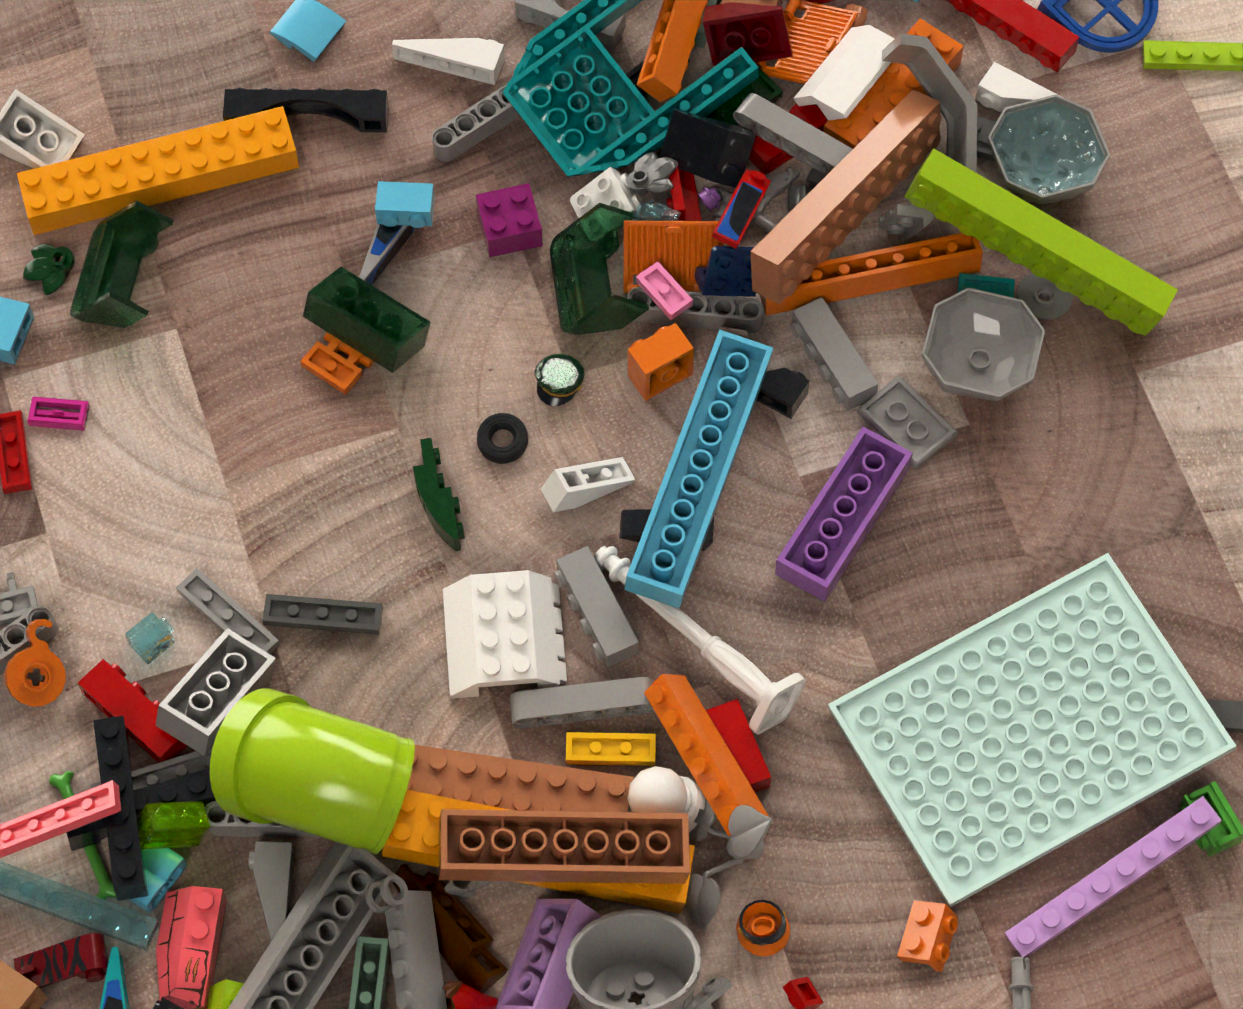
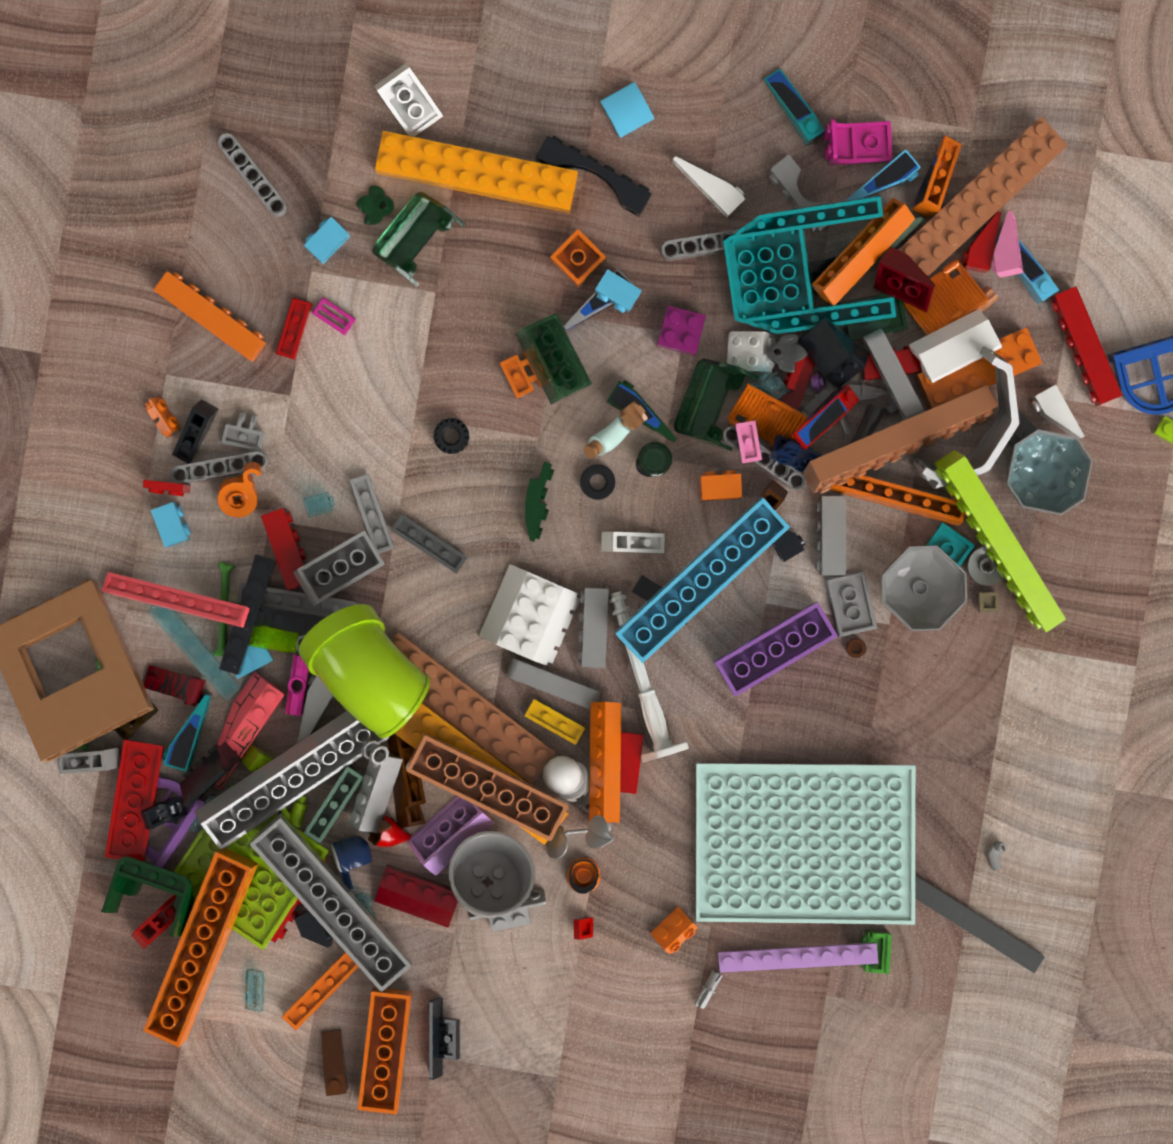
camera: 25 degrees right, 25 degrees up
(231, 860) = (295, 697): none -> dark pink piece
(283, 489) = (448, 424): none -> black tyre
(335, 200) = (577, 258): none -> orange brick
(492, 365) = (616, 431): none -> piece
(497, 329) = (625, 394): none -> slope
(945, 469) = (855, 648): none -> reddish brown tile
(1073, 335) = (988, 602): none -> dark tan plate

